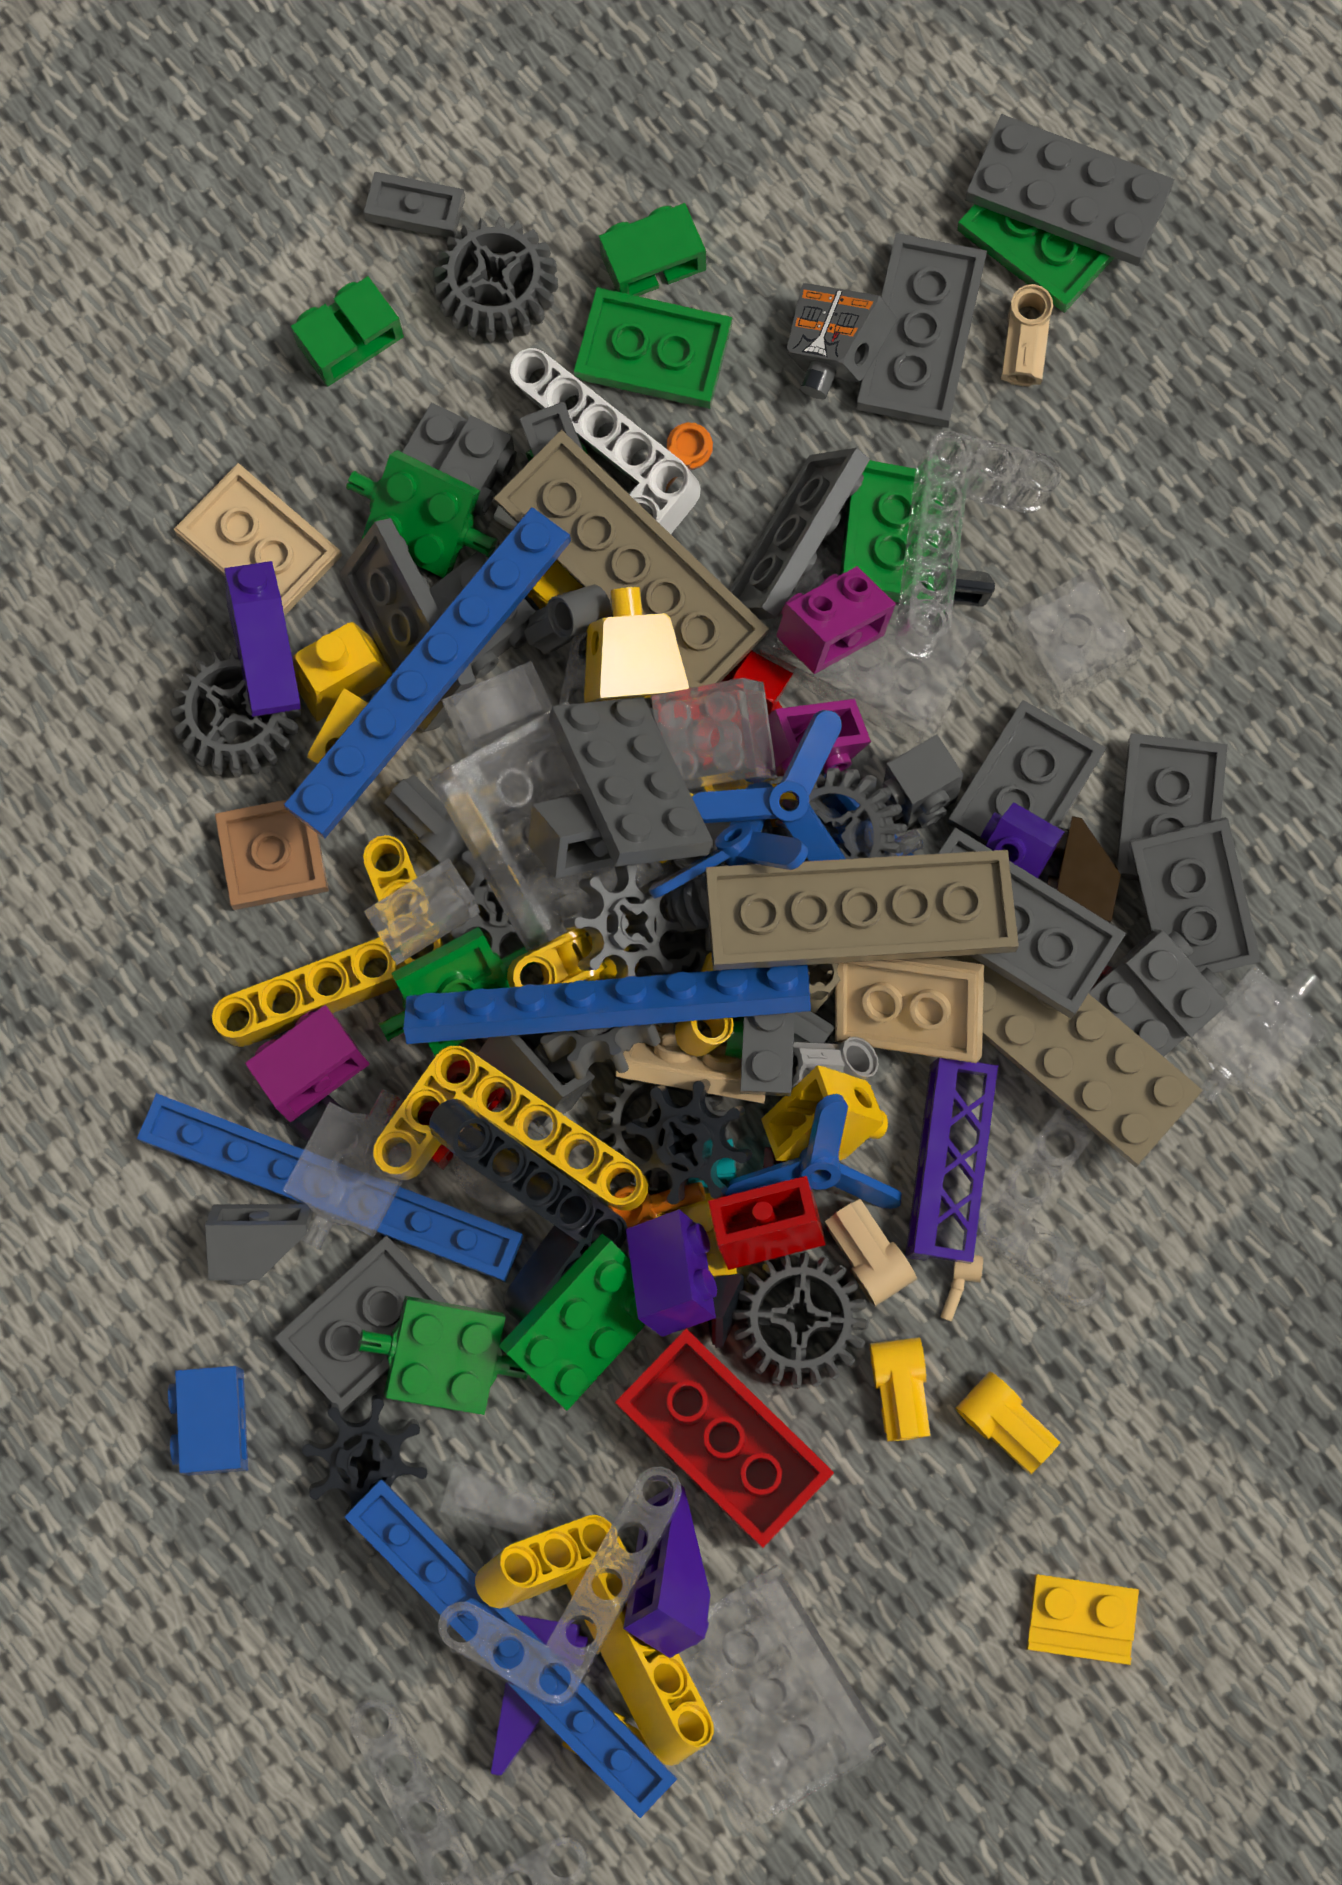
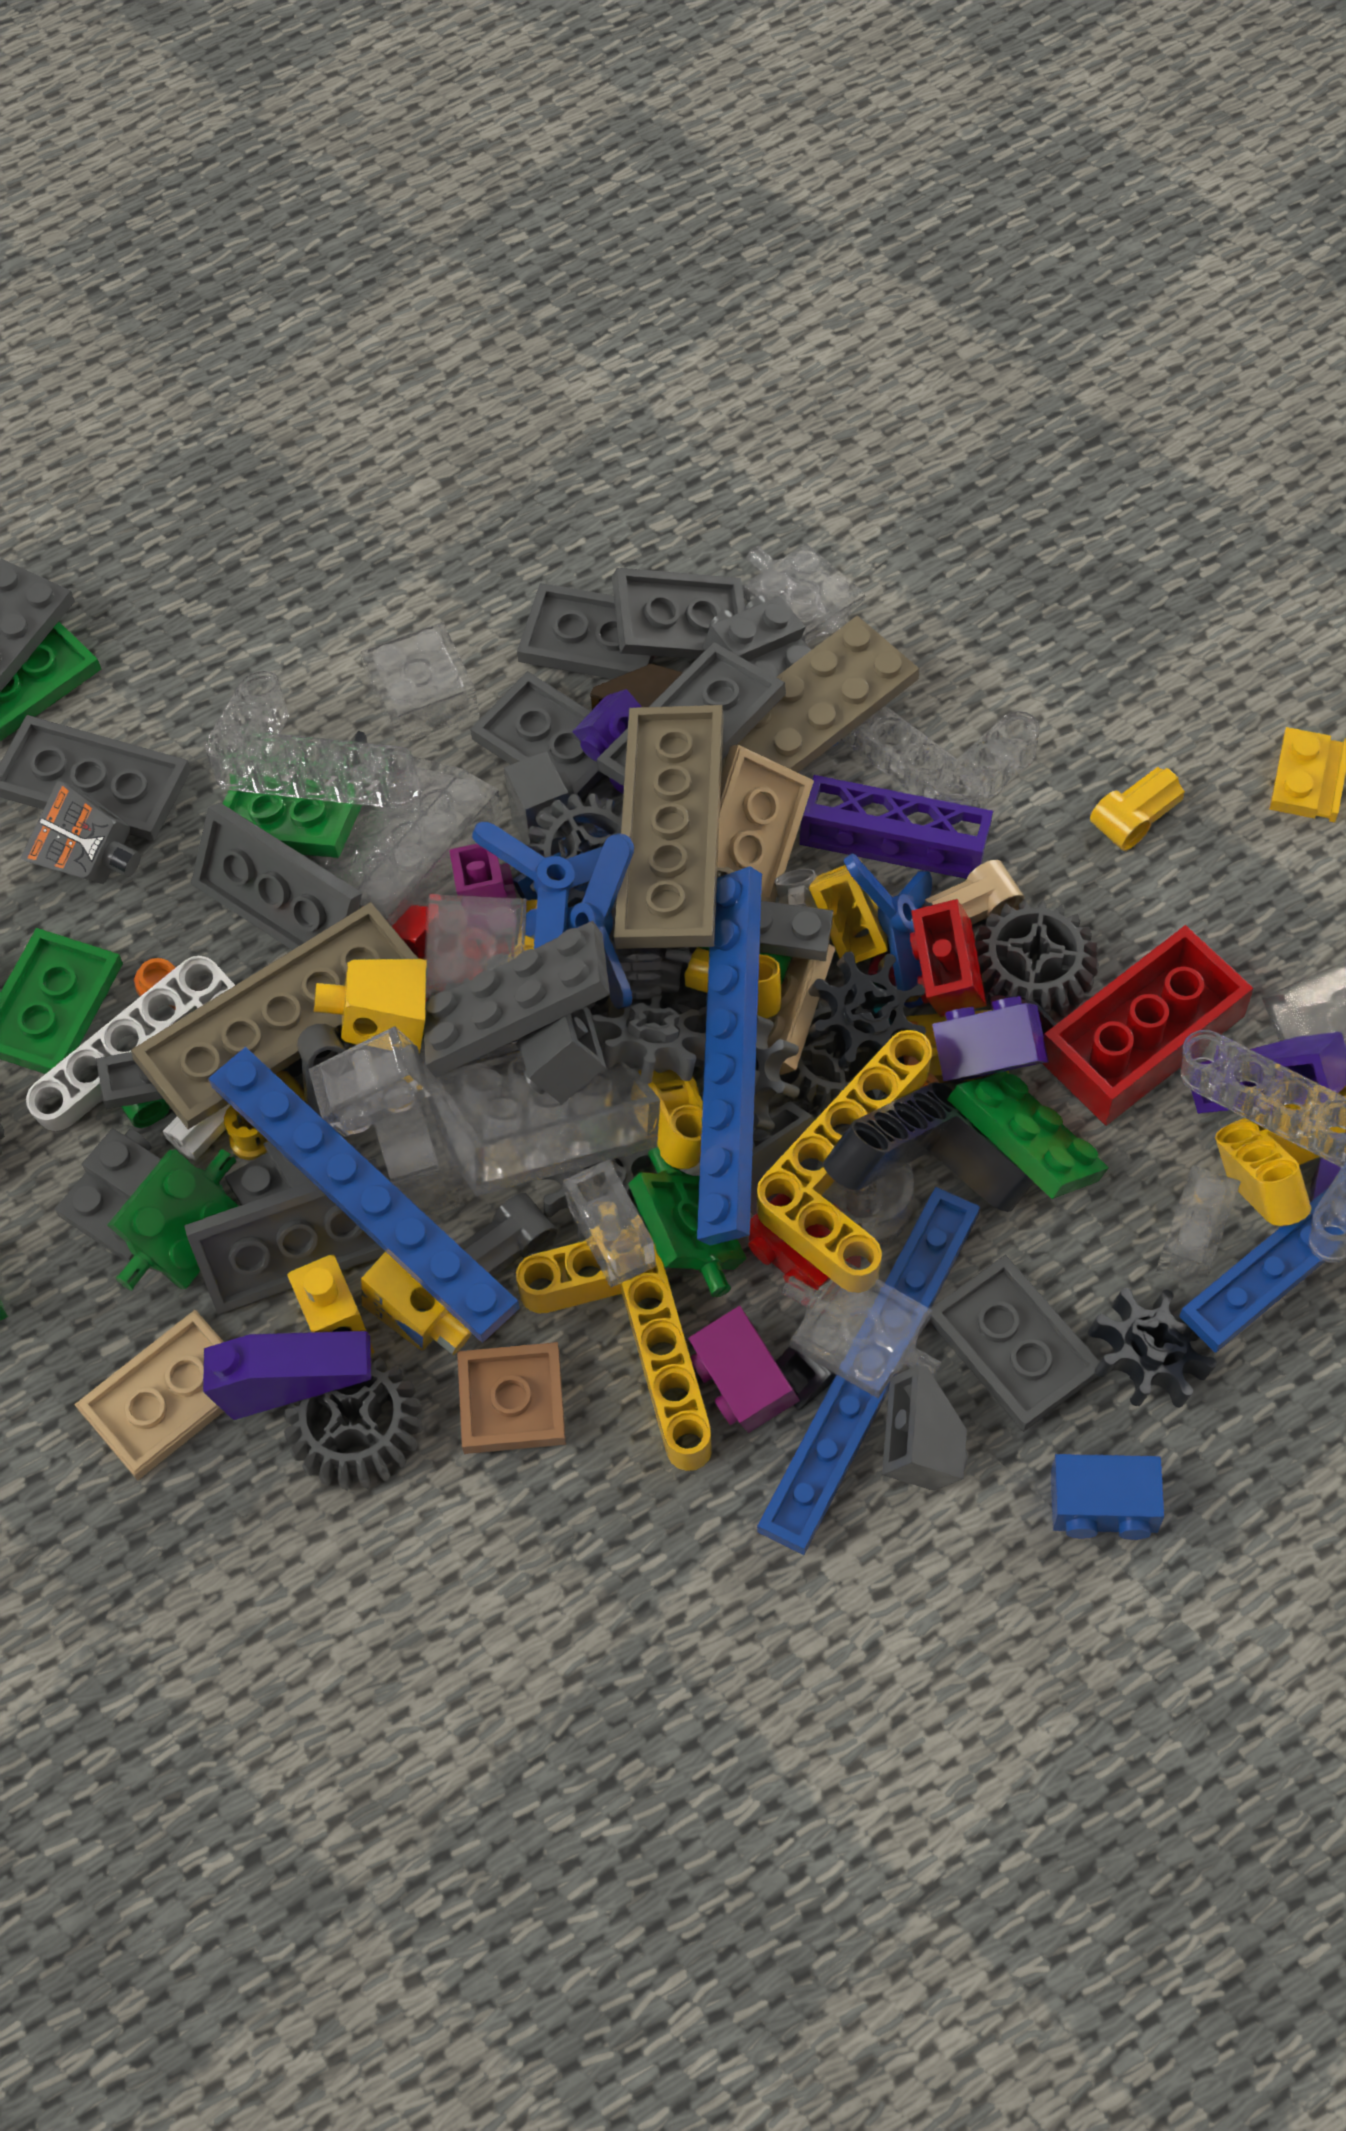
camera: 85 degrees left, 15 degrees down
(443, 1355) = (1052, 1264): green plate -> none
(533, 657) = (369, 1082): none -> clear brick
(835, 619) = (373, 843): magenta brick -> none
(900, 1376) = (1088, 887): yellow piece -> none
(961, 1273) = (999, 835): tan hand -> none
(1027, 337) = (117, 693): tan piece -> none

